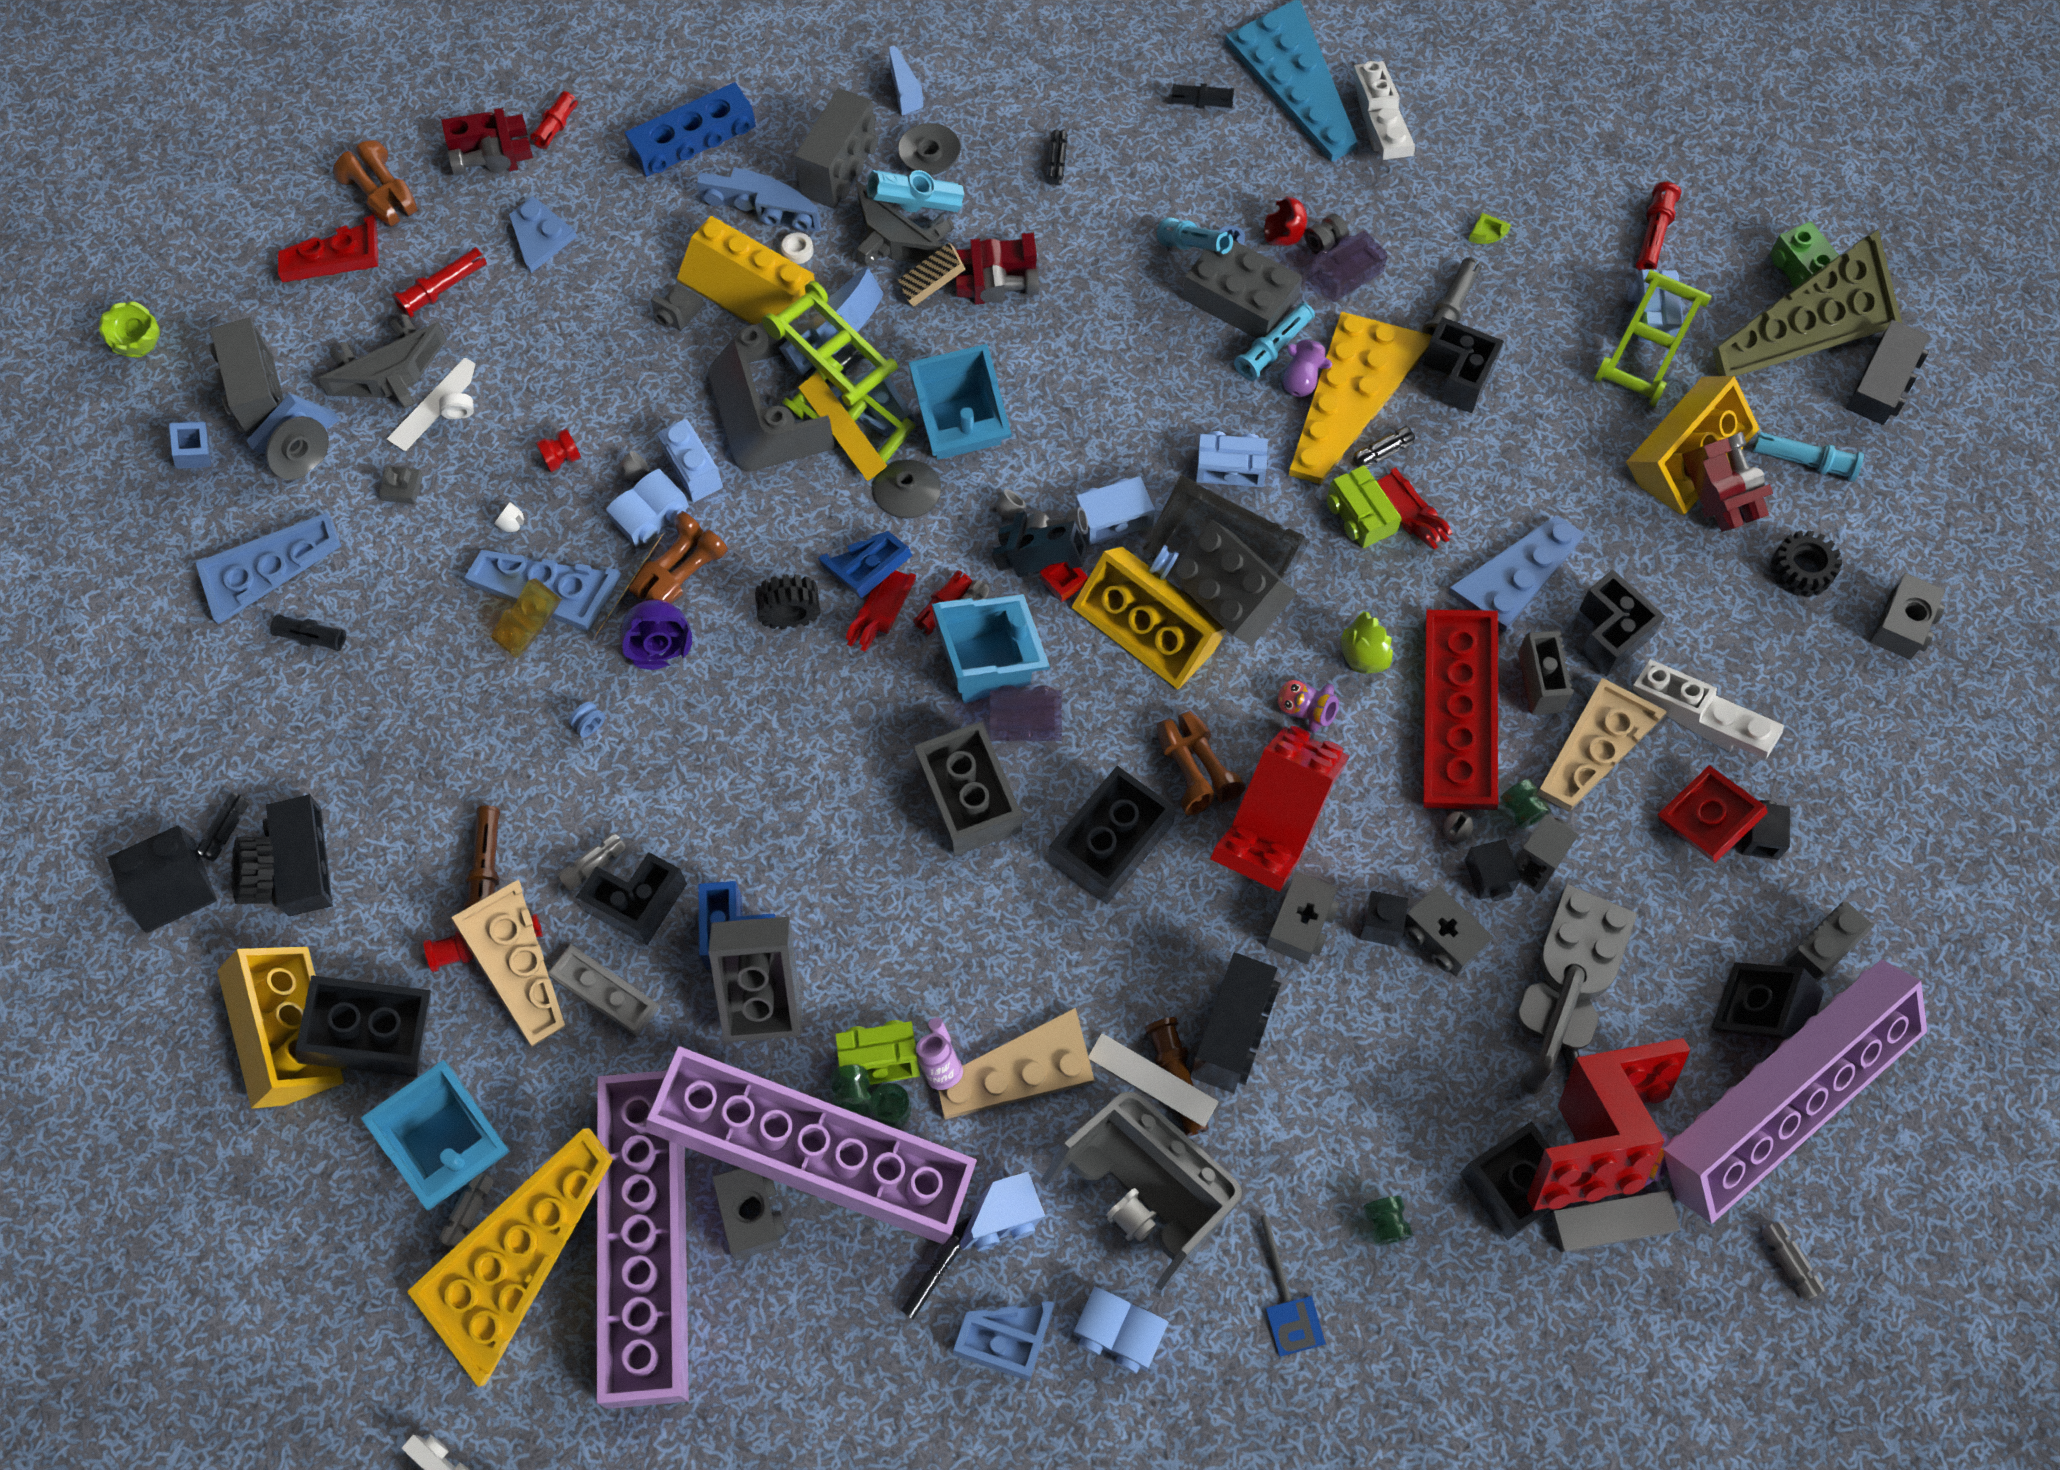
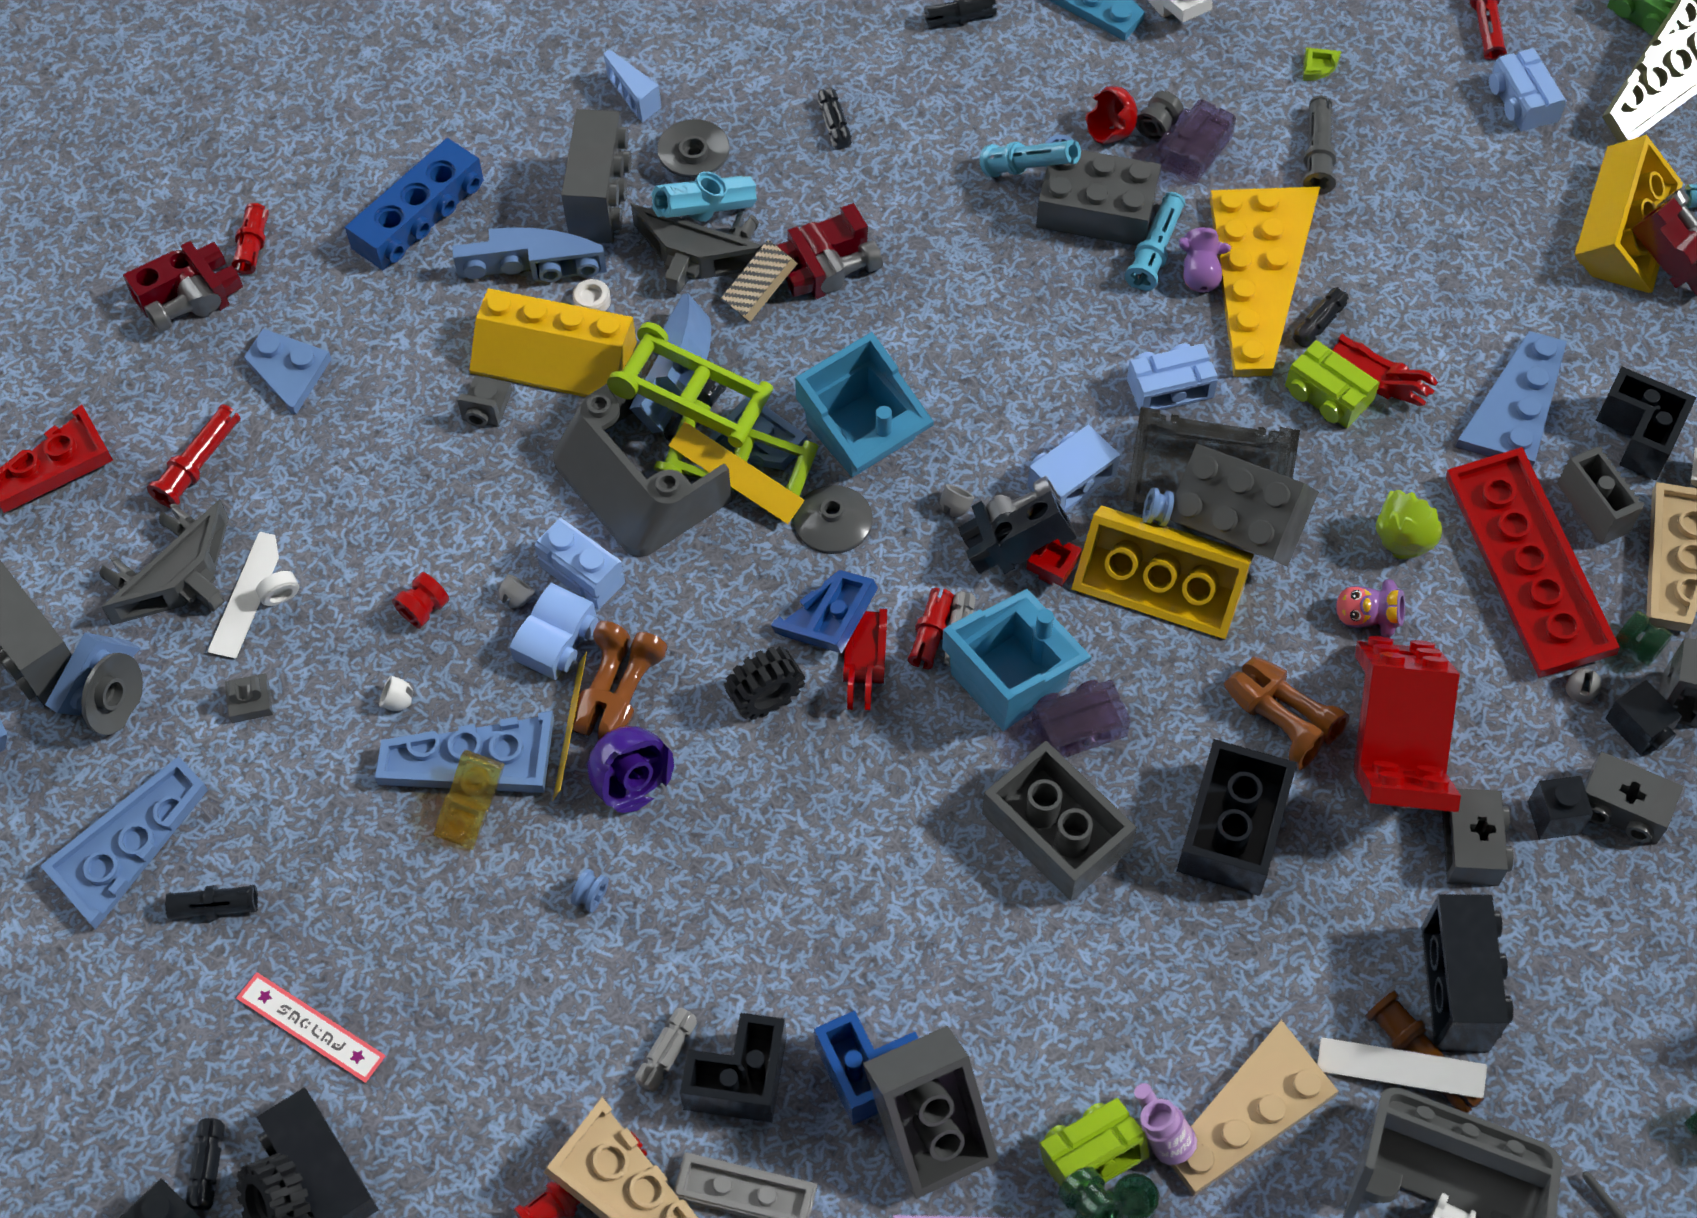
camera: 20 degrees left, 5 degrees down
(341, 752) = (311, 1027): none -> sticker
(382, 199) = (84, 386): dark orange piece -> none
(484, 878) = (547, 1111): reddish brown pin -> none
(1466, 357) = (1366, 197): black brick -> none
(1654, 390) = (1566, 171): lime piece -> none

